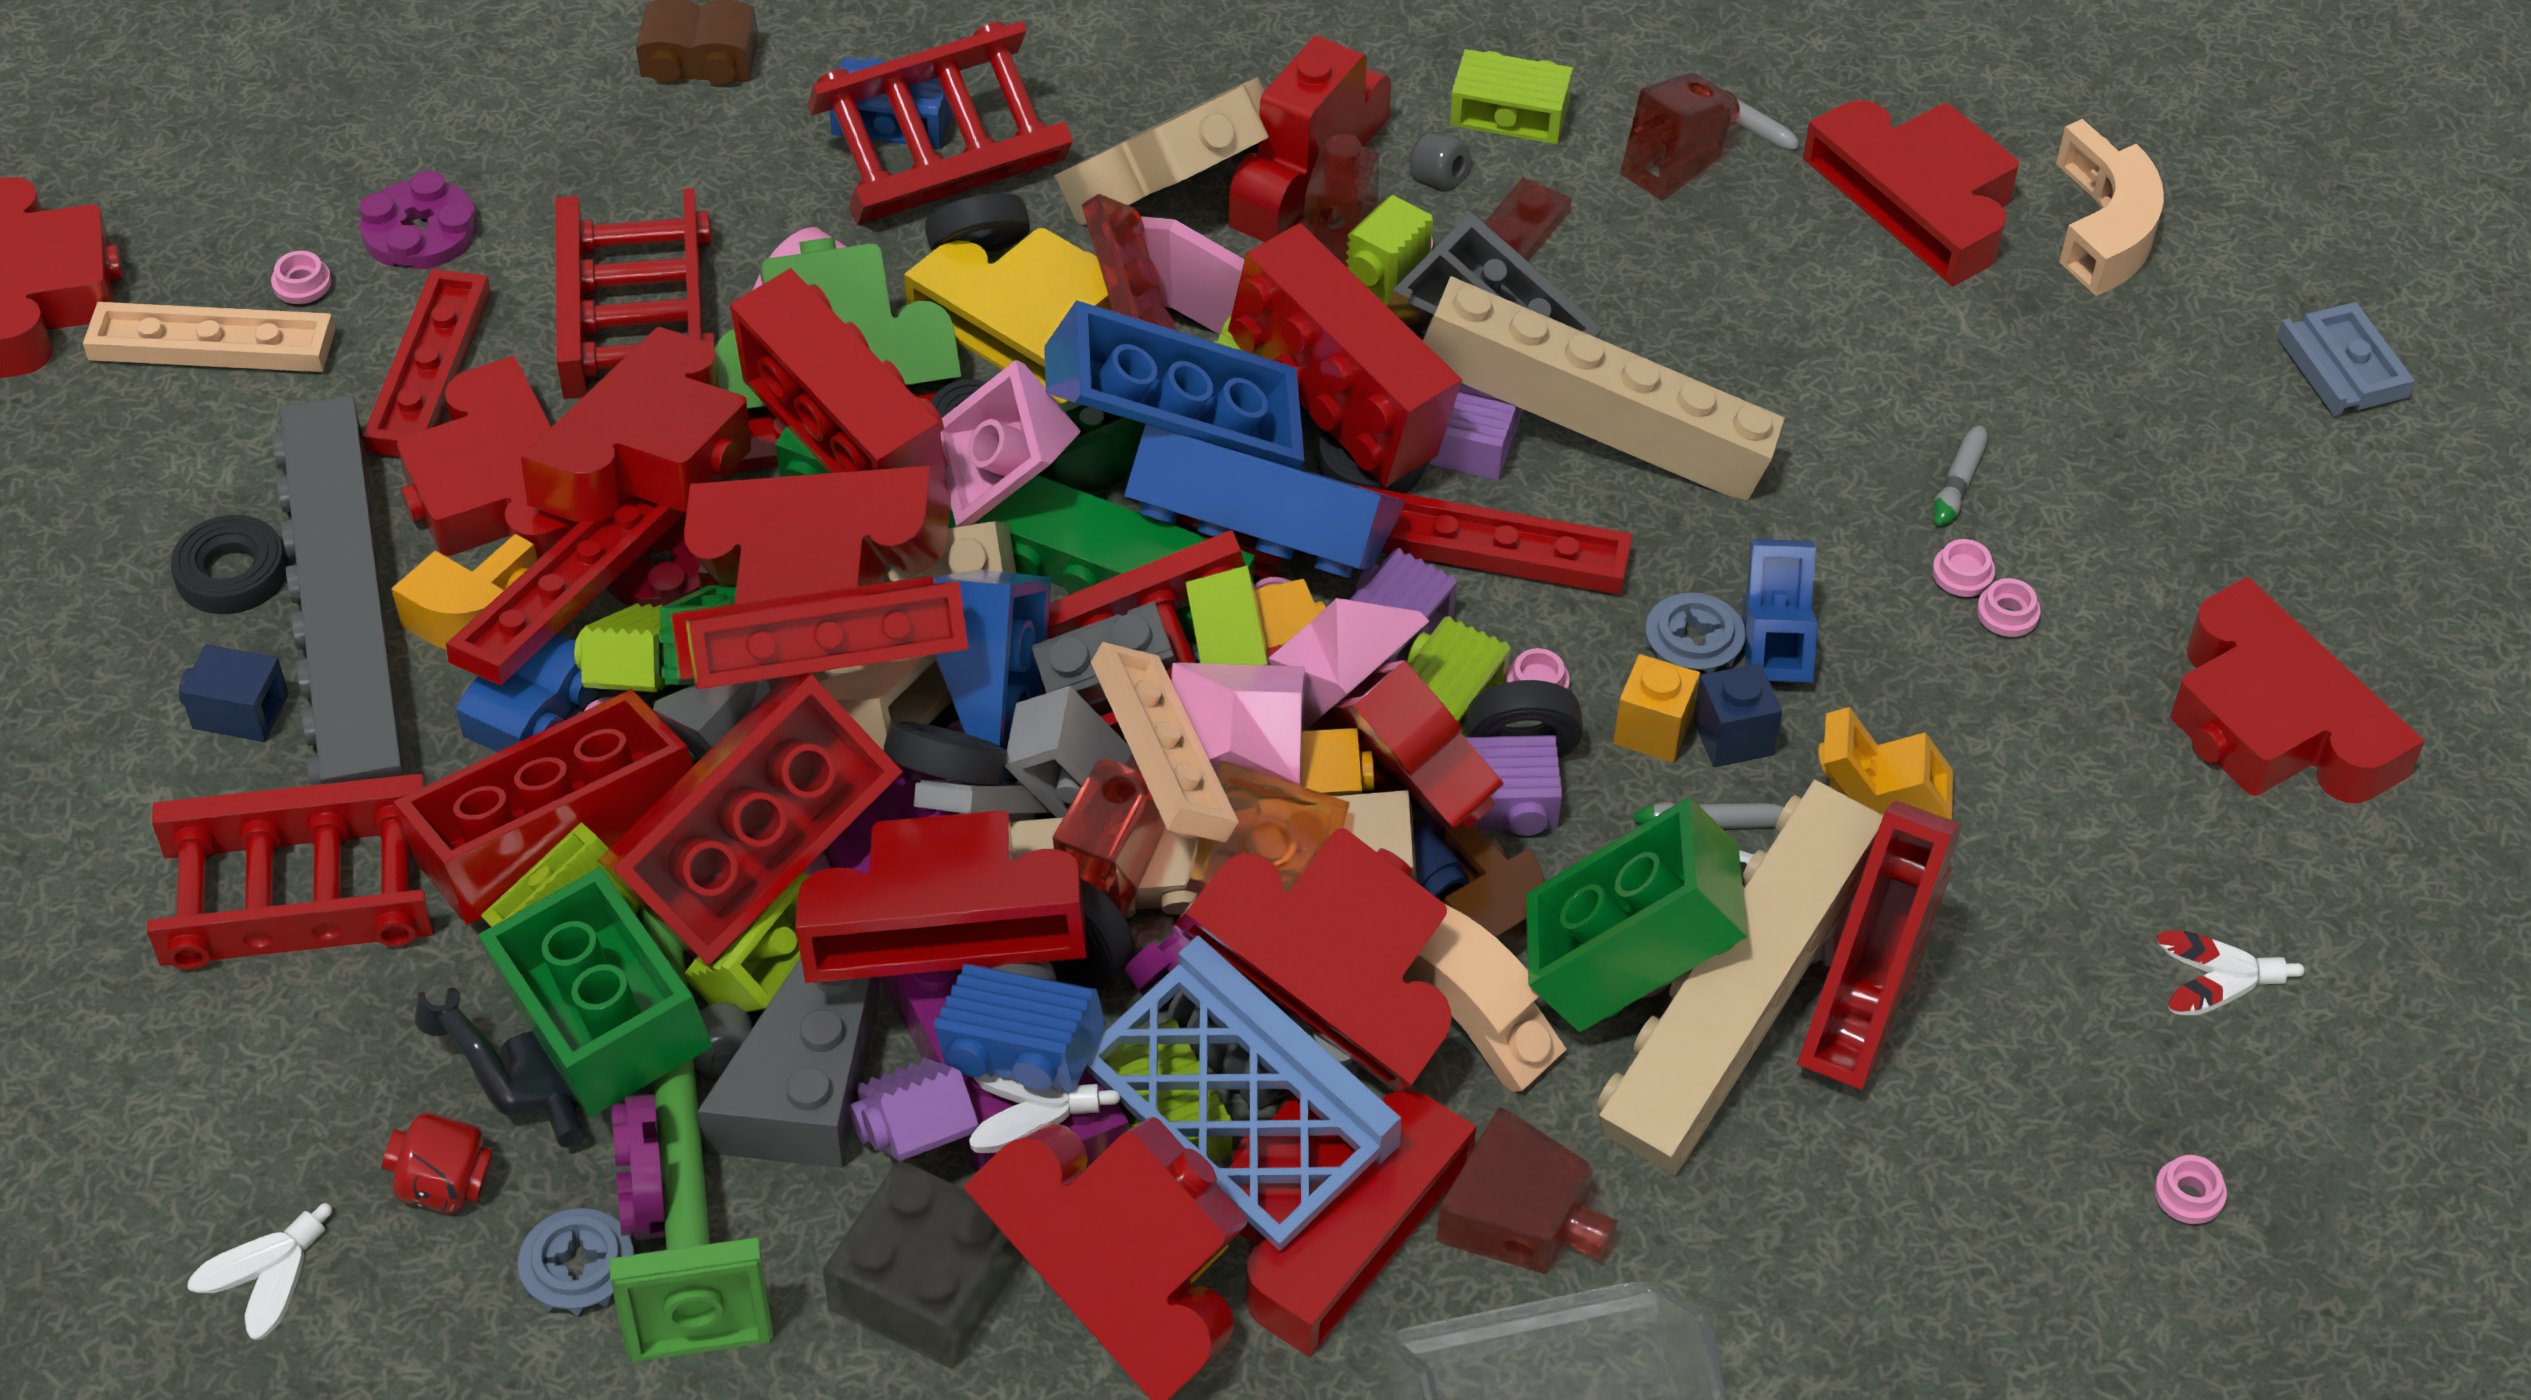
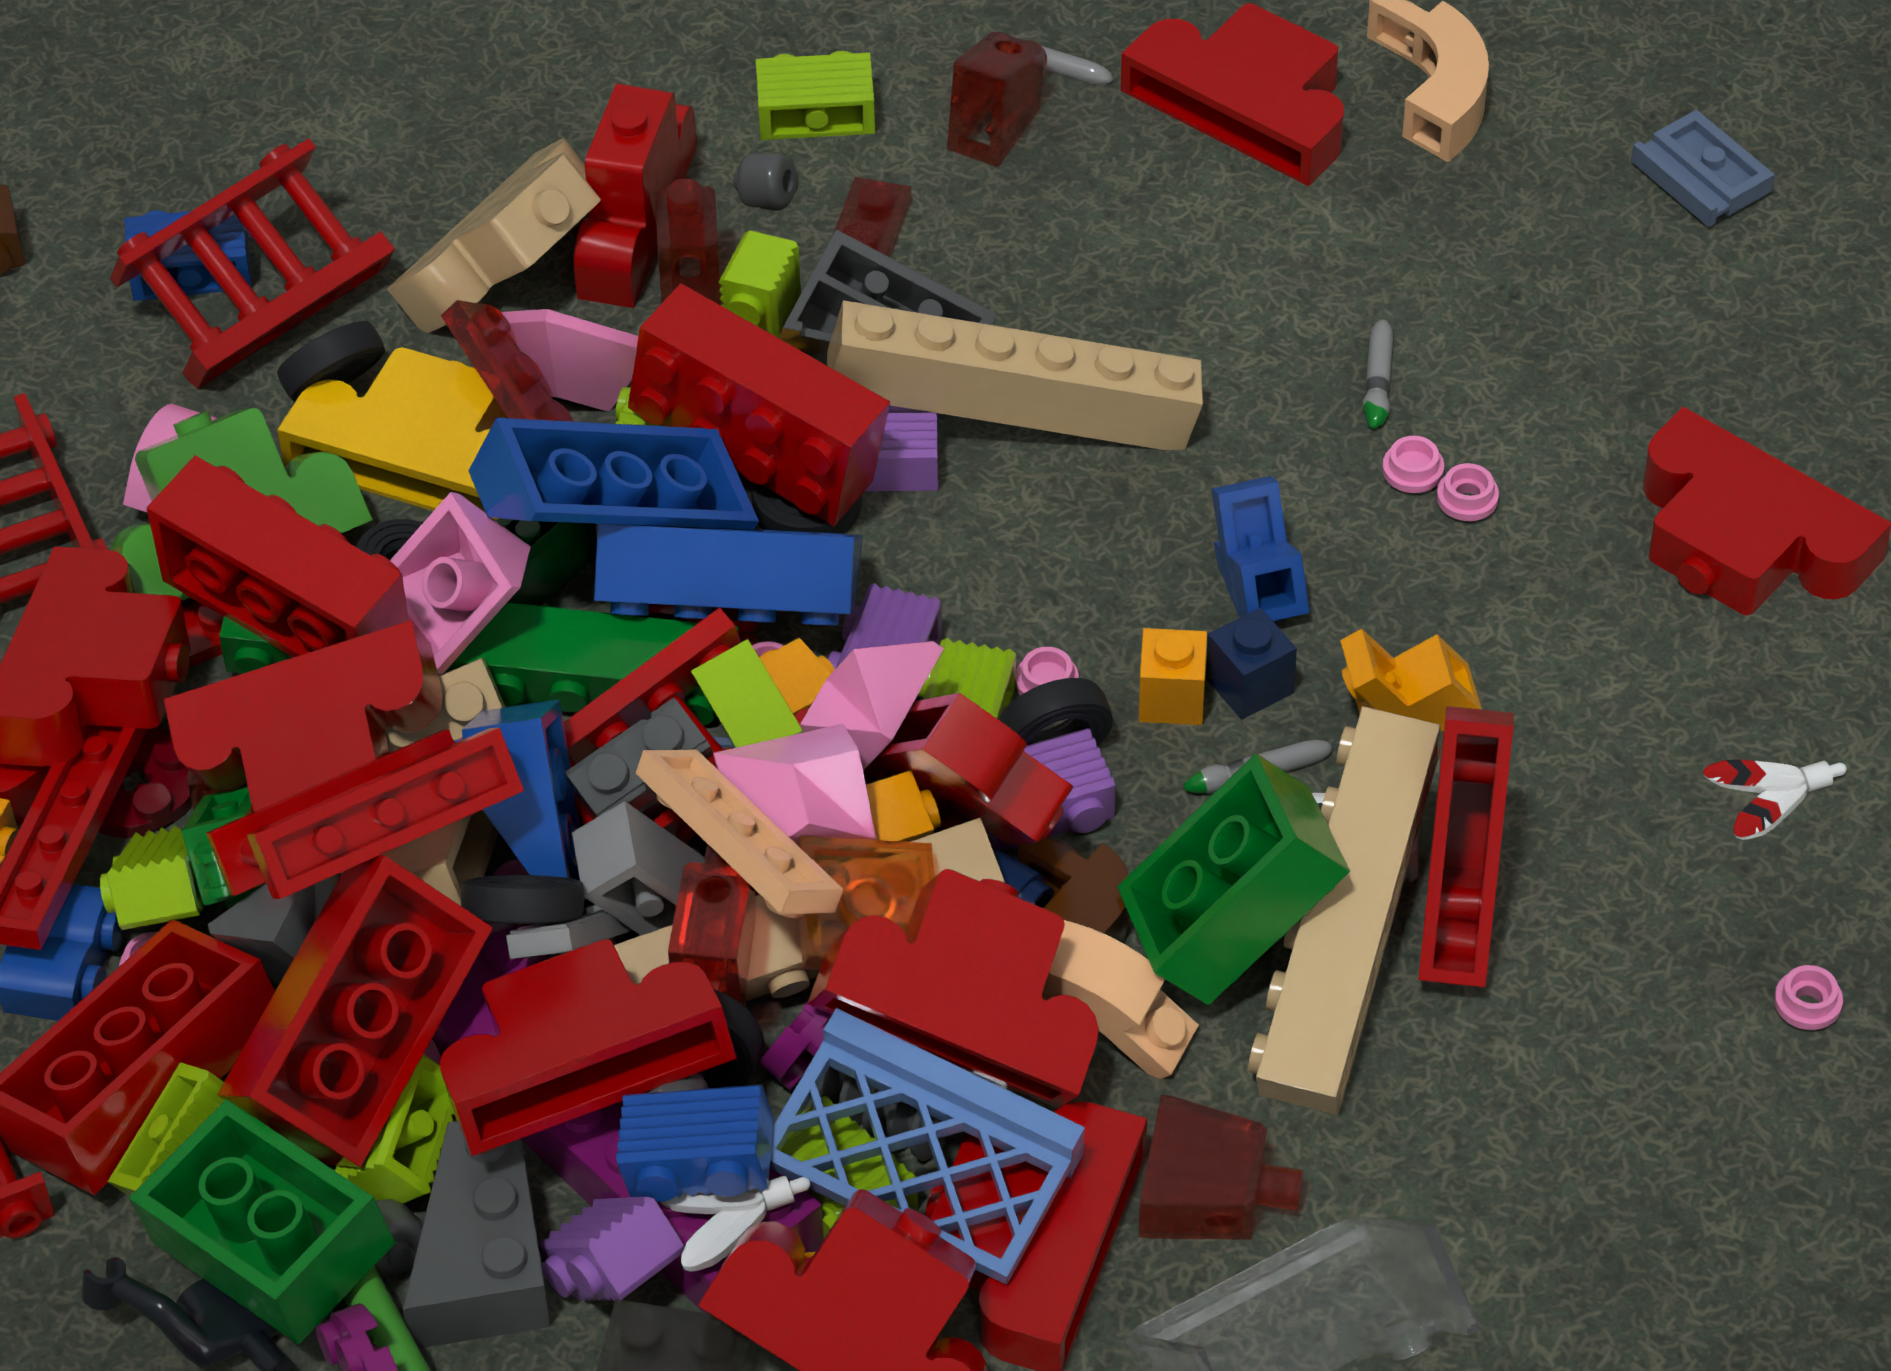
camera: 15 degrees left, 0 degrees up
(1510, 543) = (975, 550): red plate -> none
(1710, 617) = (1187, 574): sand blue gear -> none

